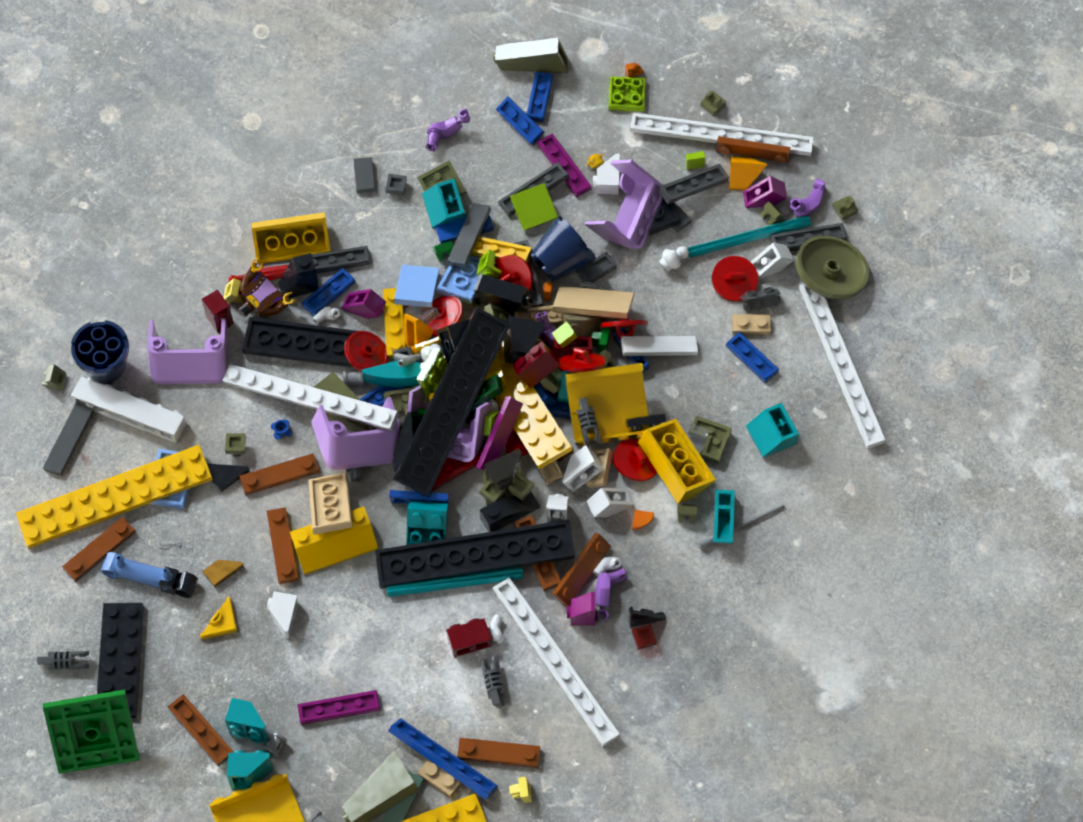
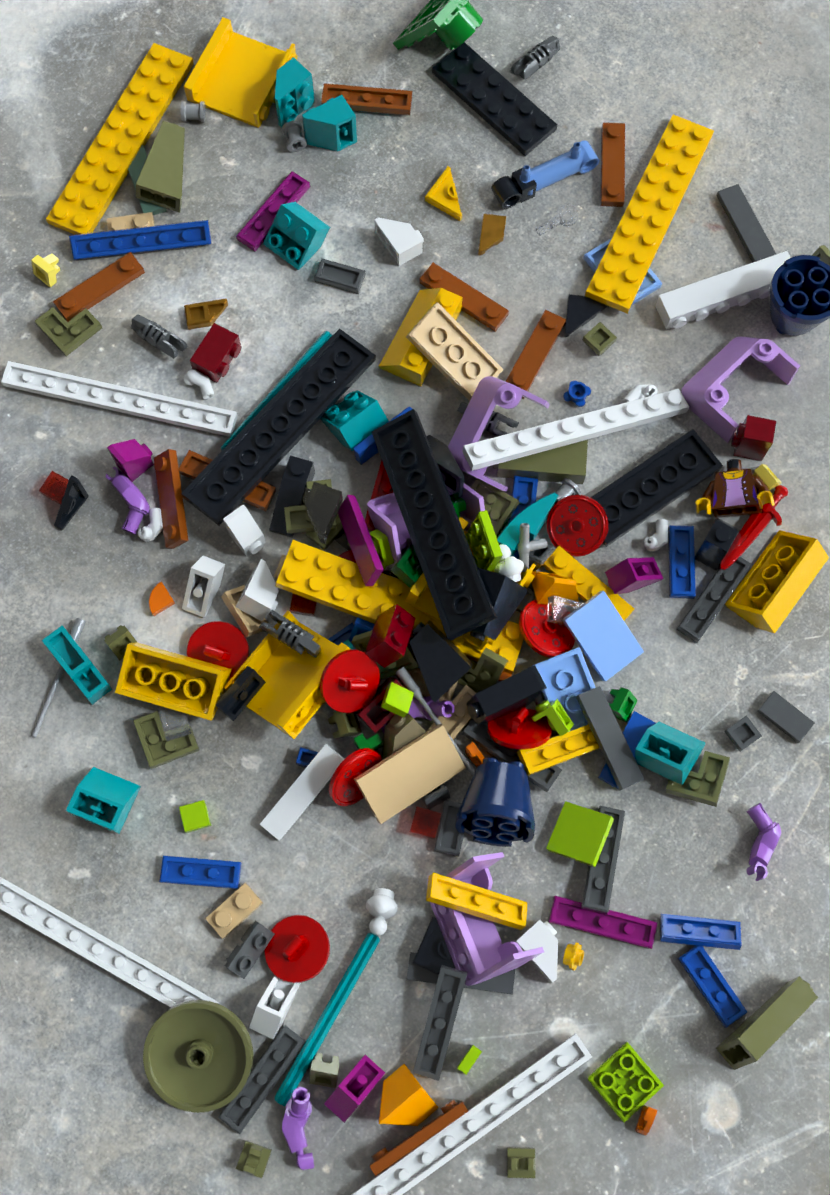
camera: 135 degrees right, 10 degrees up
(245, 398) = (639, 392): none -> white arm
(342, 625) = (340, 276): none -> dark grey tile
(342, 672) = (296, 234): none -> teal slope
(450, 675) = (204, 313): none -> pearl gold tile
(549, 339) = (412, 686): none -> light grey piece
(549, 732) = (71, 334): none -> olive plate
(608, 279) = (425, 823): none -> clear red plate
(620, 217) = (476, 901): none -> yellow plate
(729, 387) = (195, 816): none -> lime tile

